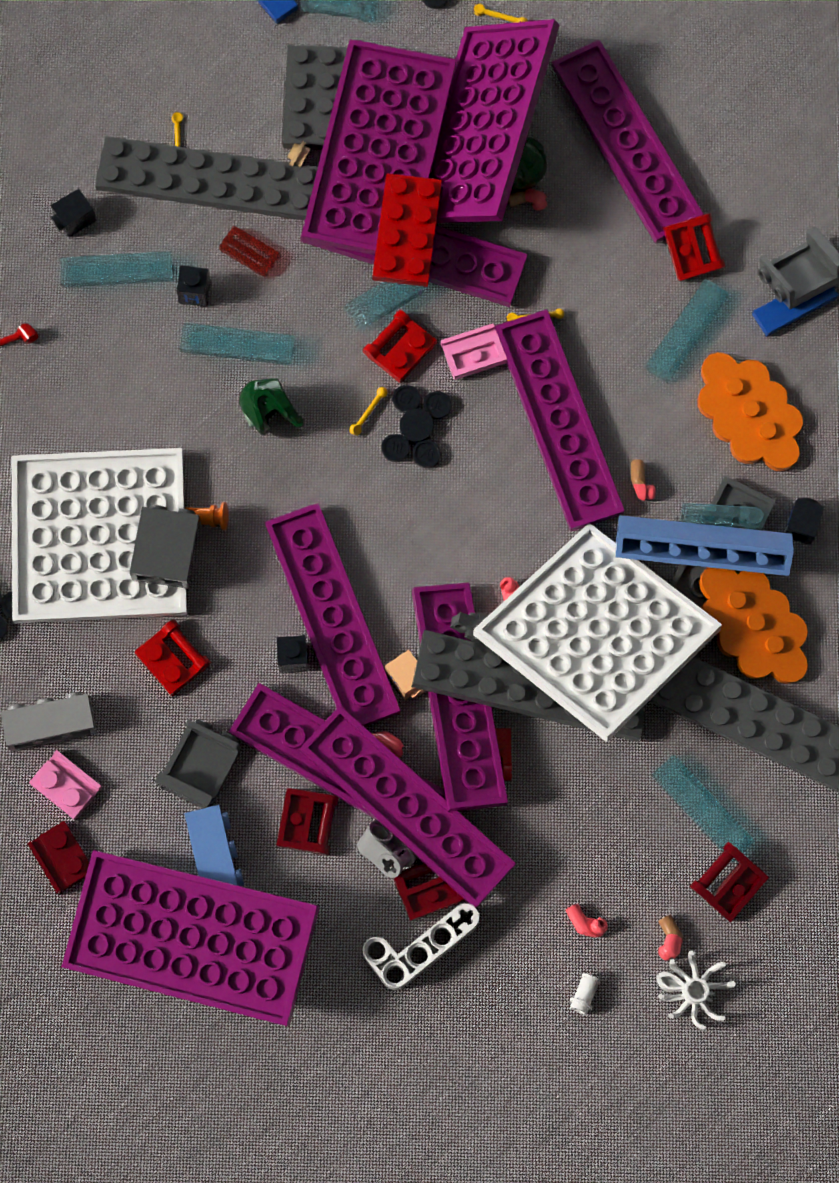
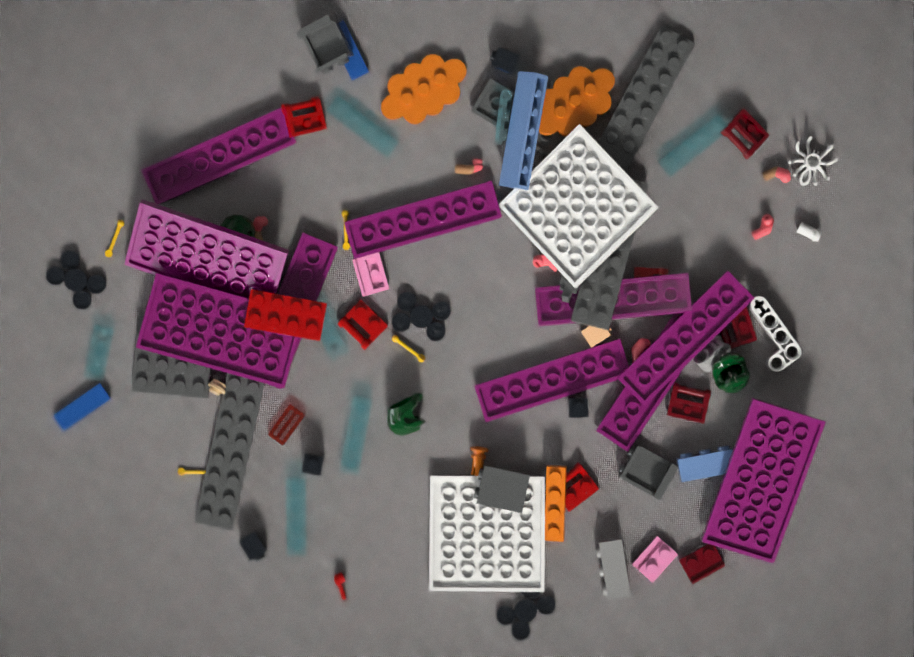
camera: 90 degrees left, 15 degrees up
(146, 628) = (555, 503): none -> orange plate
(349, 883) = (731, 373): none -> dark green helmet

